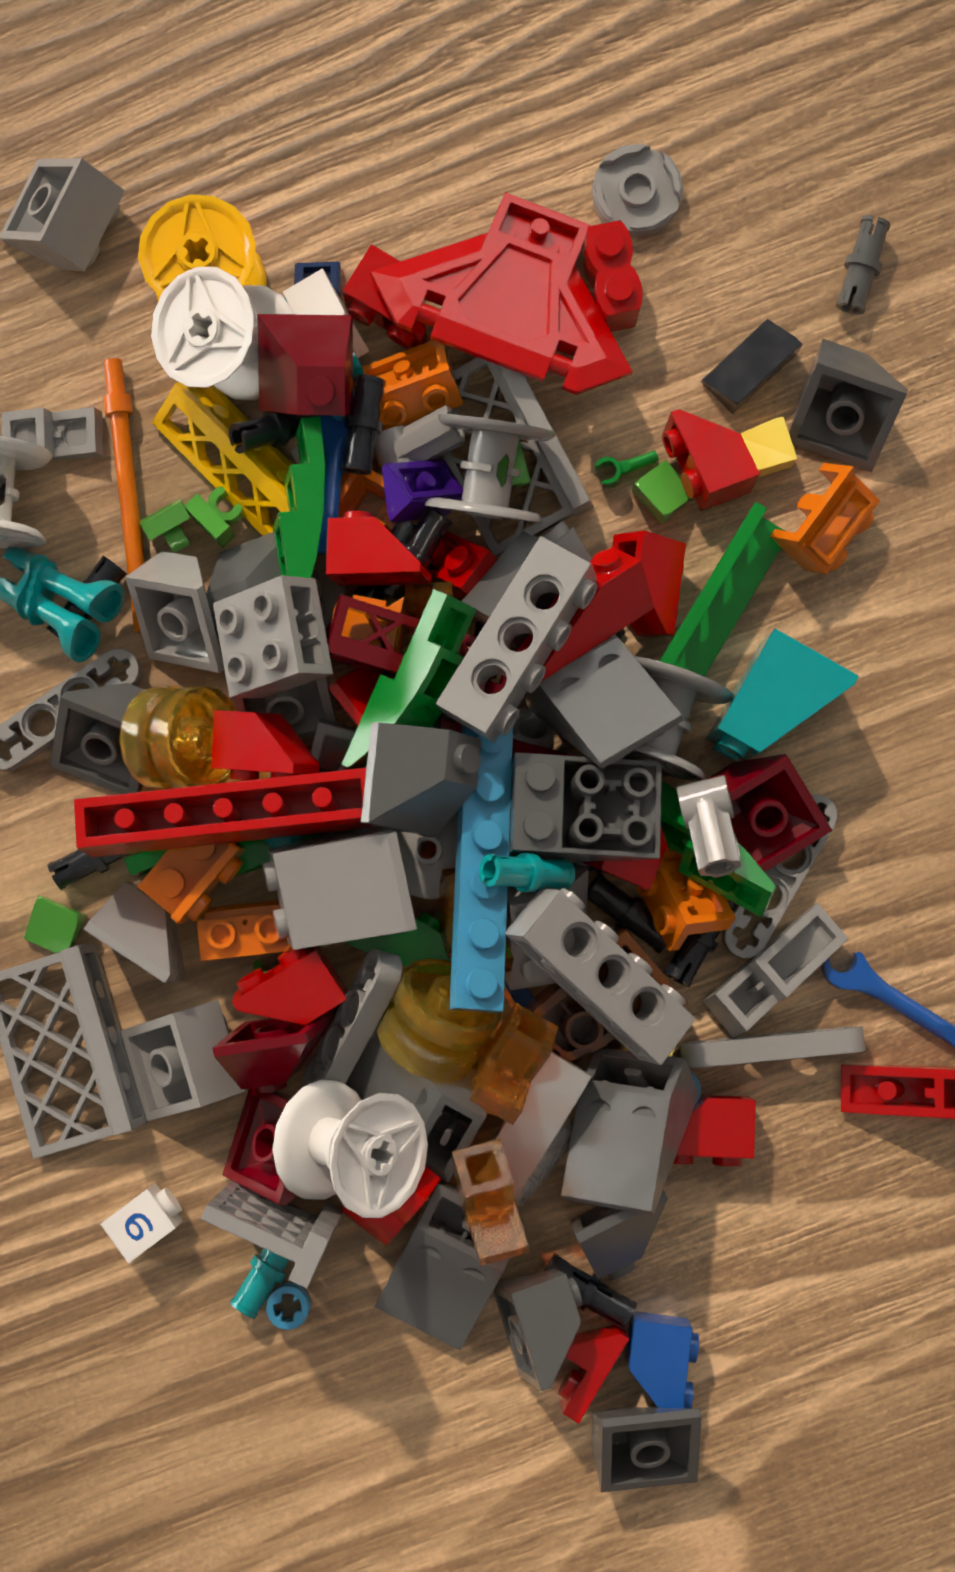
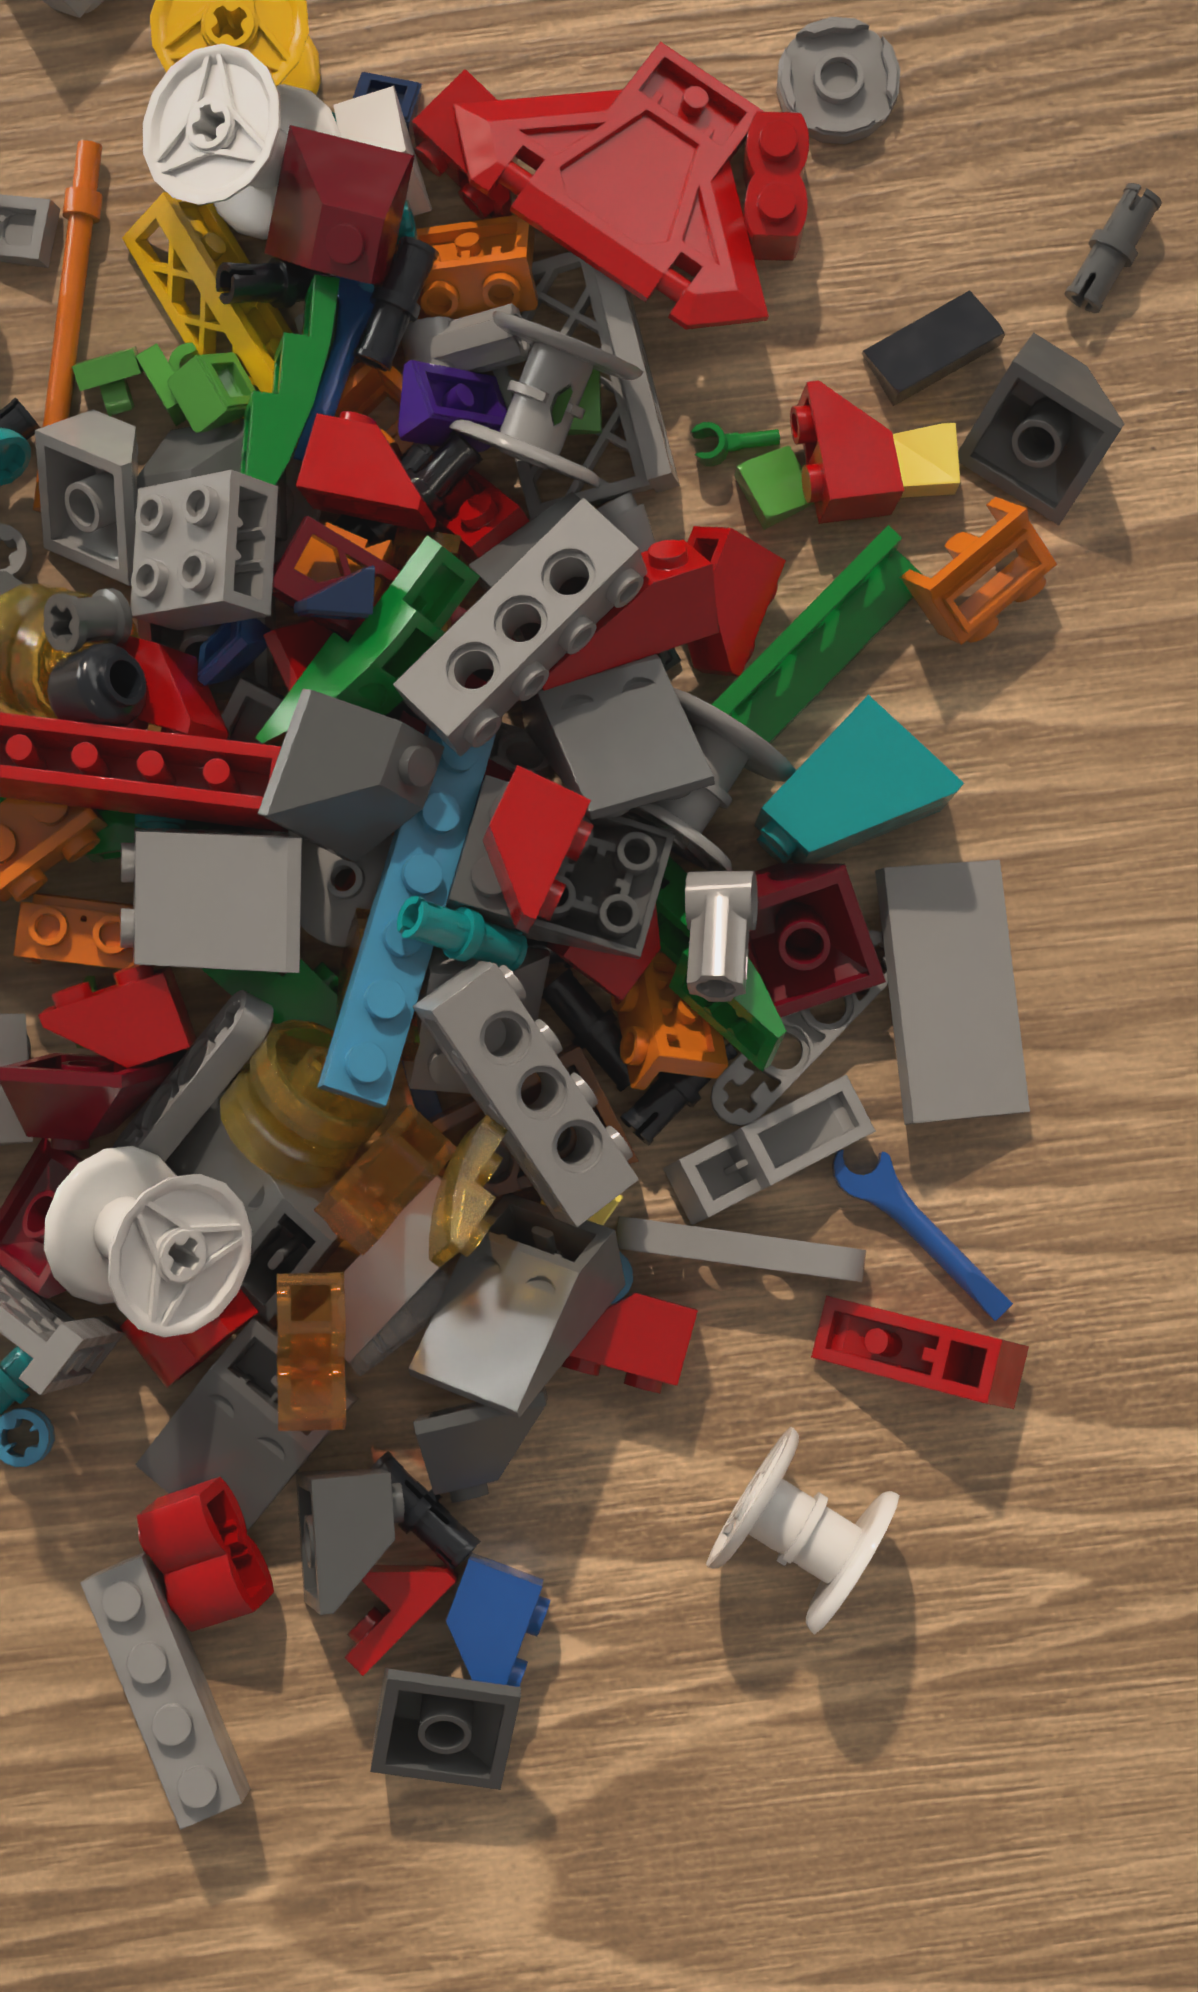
camera: 10 degrees right, 0 degrees up
(206, 705) = (81, 621): none -> dark grey bush
(219, 754) = (98, 686): none -> black head
(245, 518) = (211, 390): none -> bright green slope
(305, 703) = (231, 650): none -> blue slope
(383, 648) = (342, 600): none -> dark blue slope
(437, 1465) = (166, 1690): none -> light grey brick
(442, 1362) = (205, 1554): none -> red brick
(563, 795) = (529, 840): none -> red slope
(572, 1067) = (461, 1200): none -> clear yellow slope
(872, 1243) = (804, 1531): none -> white piece
(879, 825) = (952, 991): none -> light grey tile

